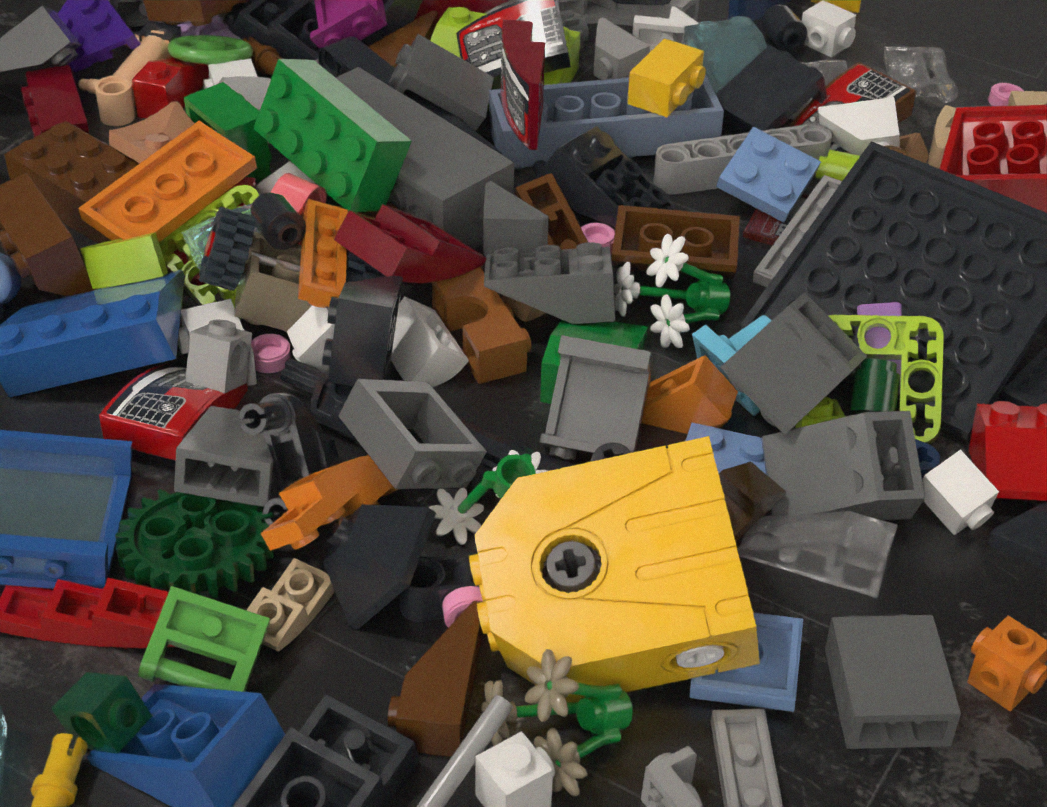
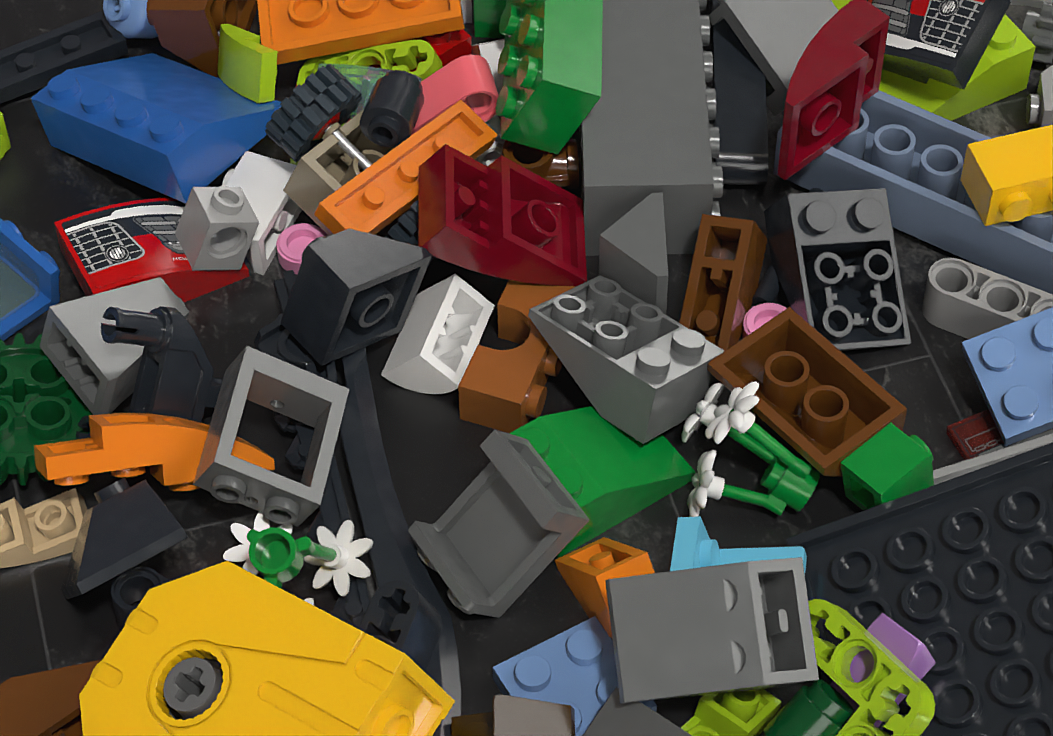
camera: 45 degrees right, 10 degrees up
(758, 256) = (887, 468): none -> green brick

